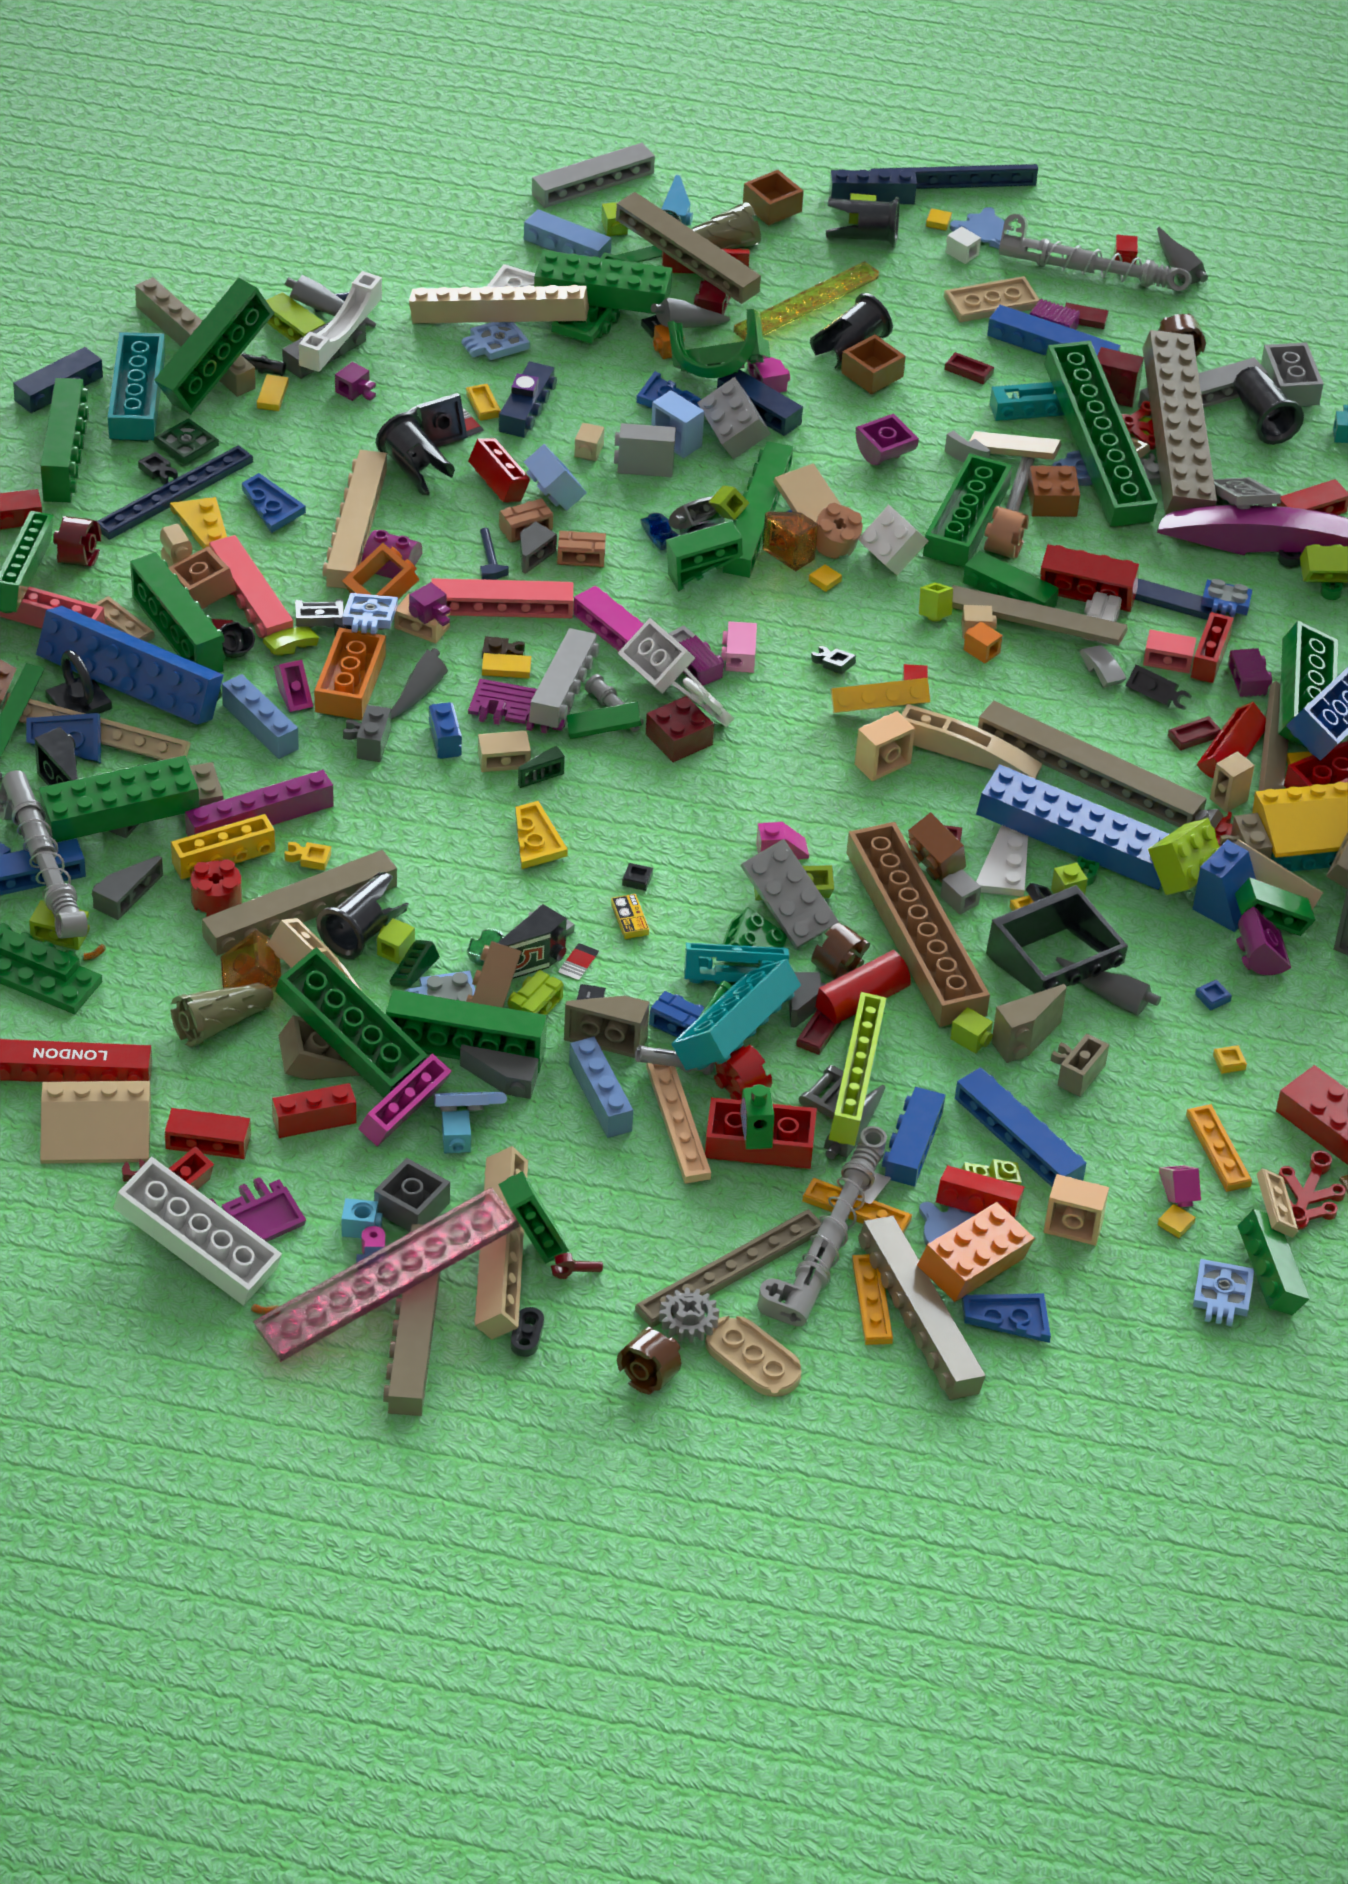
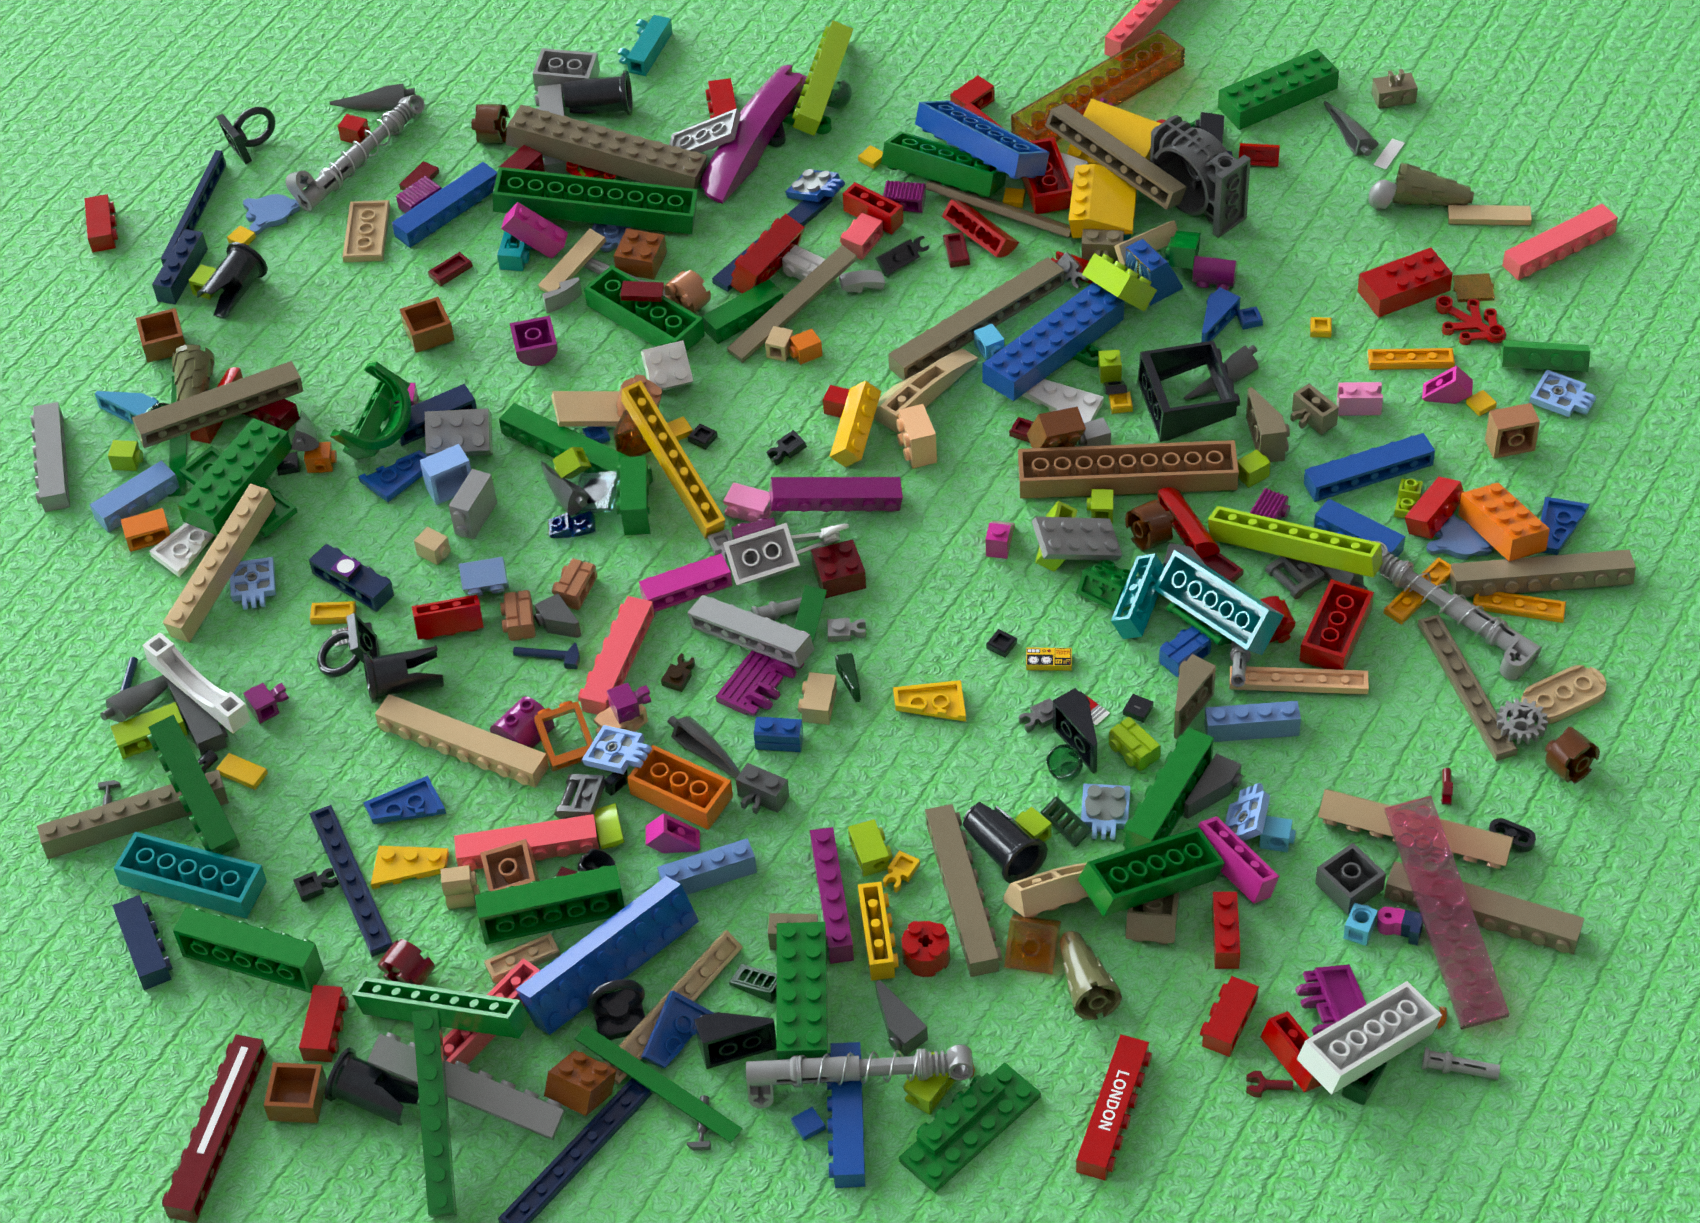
camera: 65 degrees left, 5 degrees up
(95, 1122) = (1194, 1101): tan slope -> none
(155, 1259) = (1359, 1092): none -> dark green slope
(186, 441) = (284, 853): dark green piece -> none
(204, 1318) = (1448, 1062): none -> light grey pin
(328, 824) = (869, 847): none -> lime brick
(496, 975) = (1126, 759): medium nougat brick -> none
(506, 665) = (702, 674): yellow tile -> none
(524, 252) = (145, 529): none -> orange brick
(533, 1217) = (1422, 782): green brick -> none
(606, 753) = (842, 629): none -> light grey plate
(751, 561) = (673, 459): none -> yellow brick
(757, 1105) = (1346, 612): green torso -> none
(774, 701) = (835, 494): none -> magenta brick
(812, 298) = (311, 352): clear yellow plate -> none
(824, 597) = (702, 436): none -> black tile
(858, 323) = (376, 321): black piece -> none
(860, 914) = (1101, 504): none -> lime brick
(905, 123) = (101, 223): none -> red brick
(909, 1053) = (1271, 505): none -> magenta brick
(935, 601) = (749, 360): lime brick -> none
(963, 245) = (289, 228): white brick -> none
(981, 492) = (642, 291): none -> dark red tile
(1033, 399) = (534, 230): none -> dark pink brick
(1060, 175) = (236, 136): none -> black tile
(1062, 776) = (988, 341): none -> medium azure brick
(1076, 1209) = (1470, 451): light nougat brick -> none
(1120, 1098) = (1359, 398): none -> bright pink brick
(1127, 1242) = (1512, 430): none -> nougat brick
(1193, 960) = (1220, 310): none -> blue slope
(1232, 781) = (1035, 237): tan brick -> none
(1277, 1202) = (1490, 335): tan tile -> none

